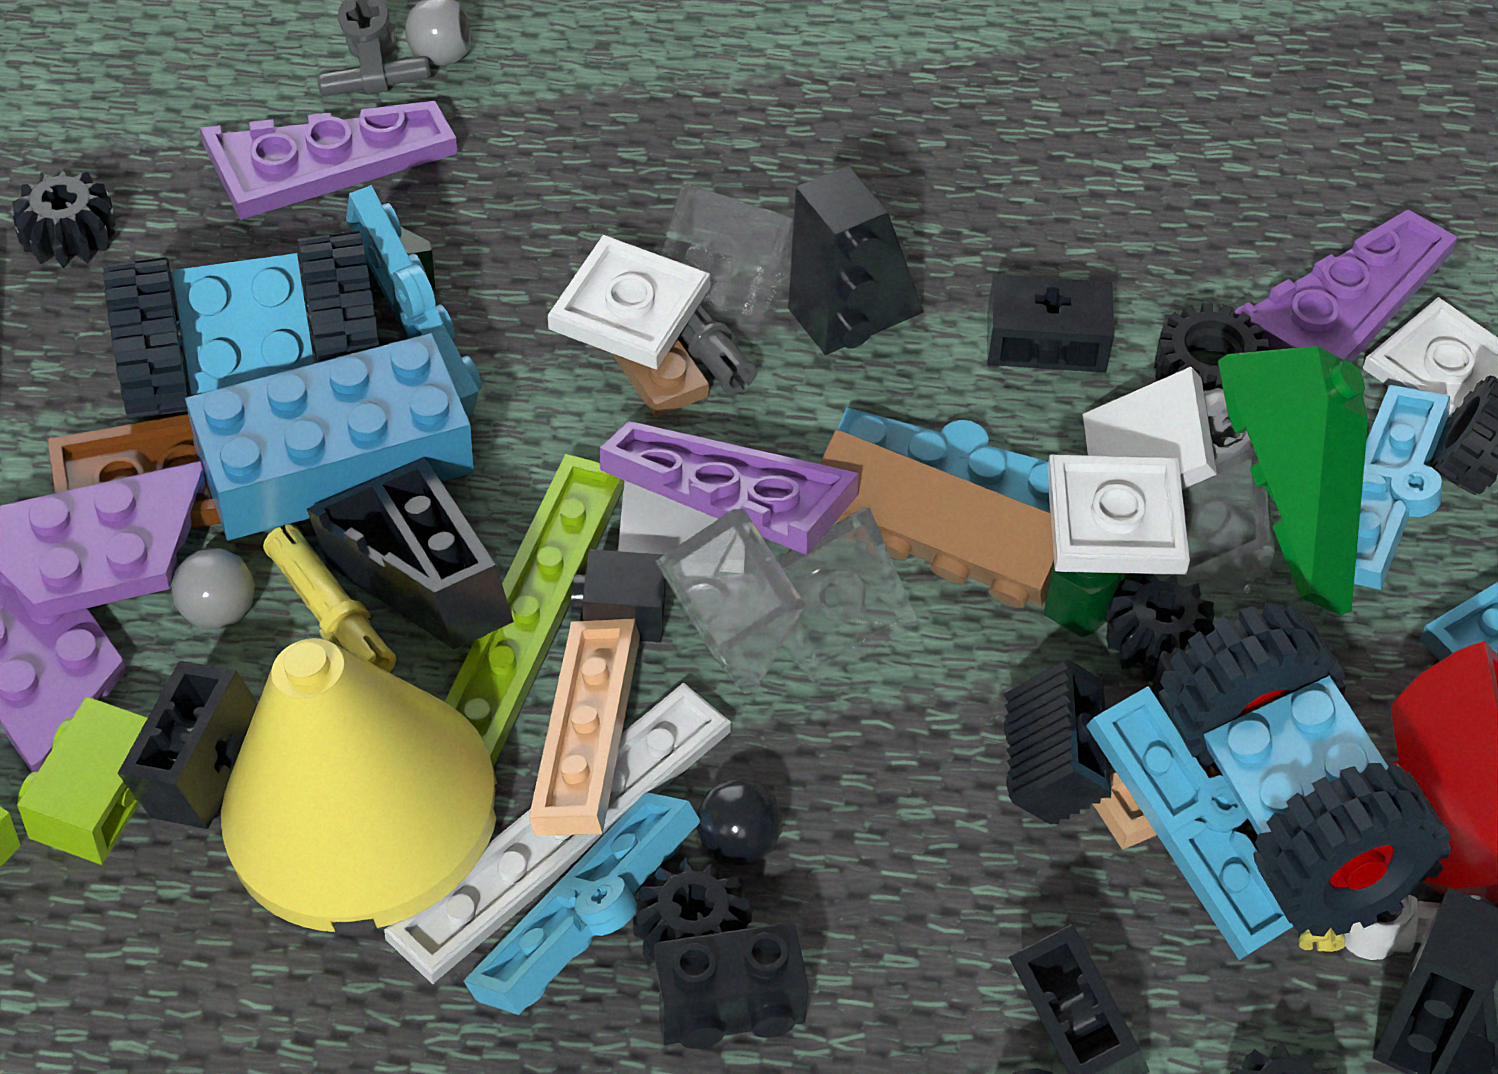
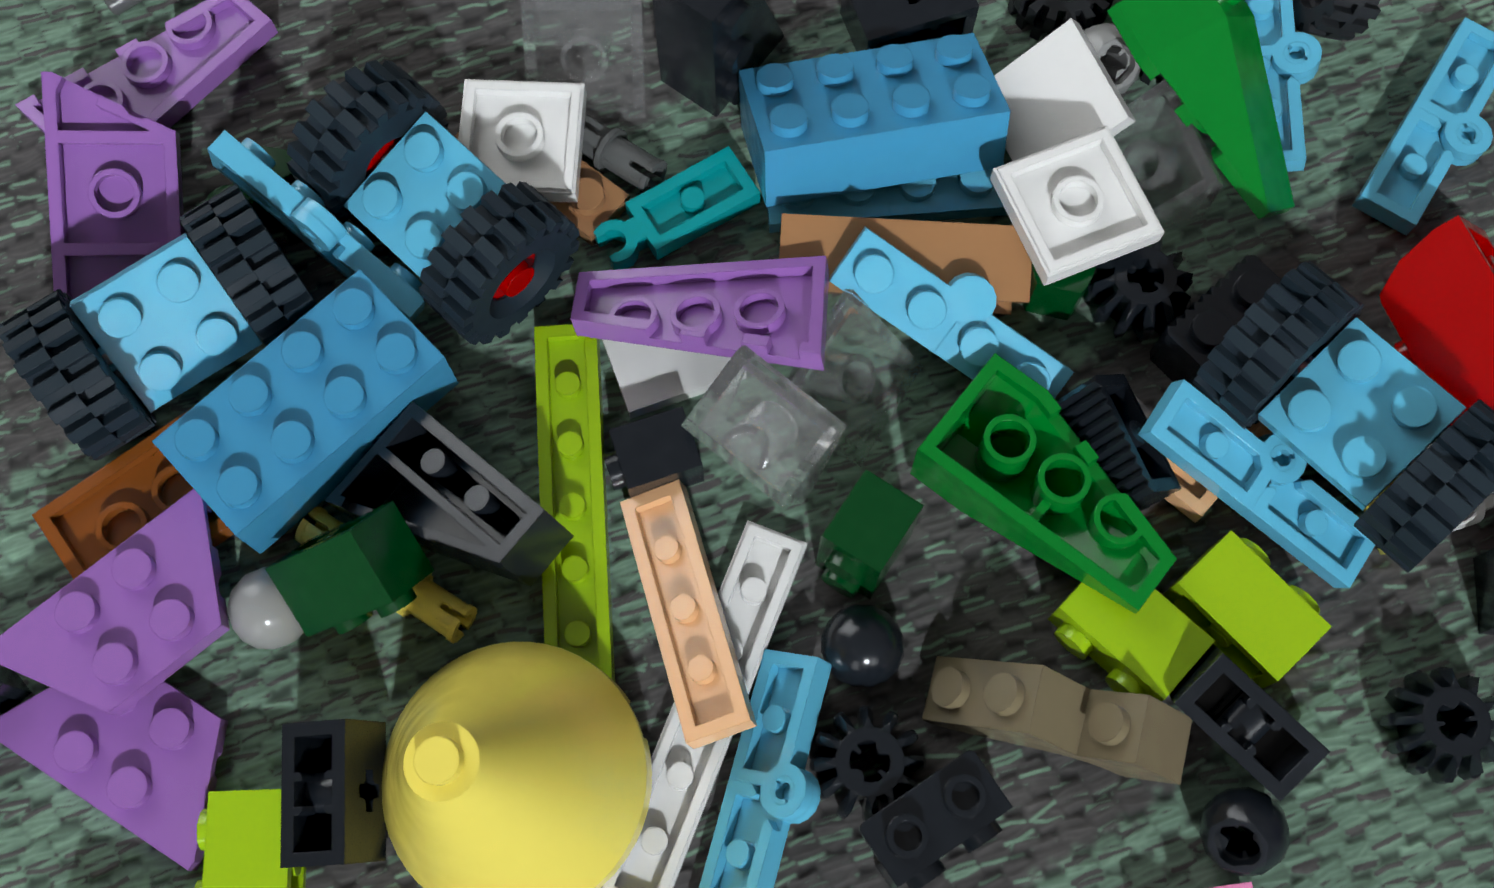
camera: 20 degrees left, 20 degrees up
(250, 198) = (108, 183): none -> medium lavender wing
(301, 568) = (352, 572): none -> dark green brick
(545, 356) = (388, 161): none -> black plate
(752, 410) = (681, 209): none -> teal plate
(784, 719) = (866, 536): none -> dark green brick
(882, 930) = (1054, 714): none -> dark tan arch
(956, 579) = (943, 317): none -> medium azure hinge
(962, 389) = (872, 118): none -> dark azure brick
(964, 730) = (1030, 478): none -> green wedge
(998, 898) = (1139, 650): none -> lime brick
(1133, 930) = (1248, 609): none -> lime brick

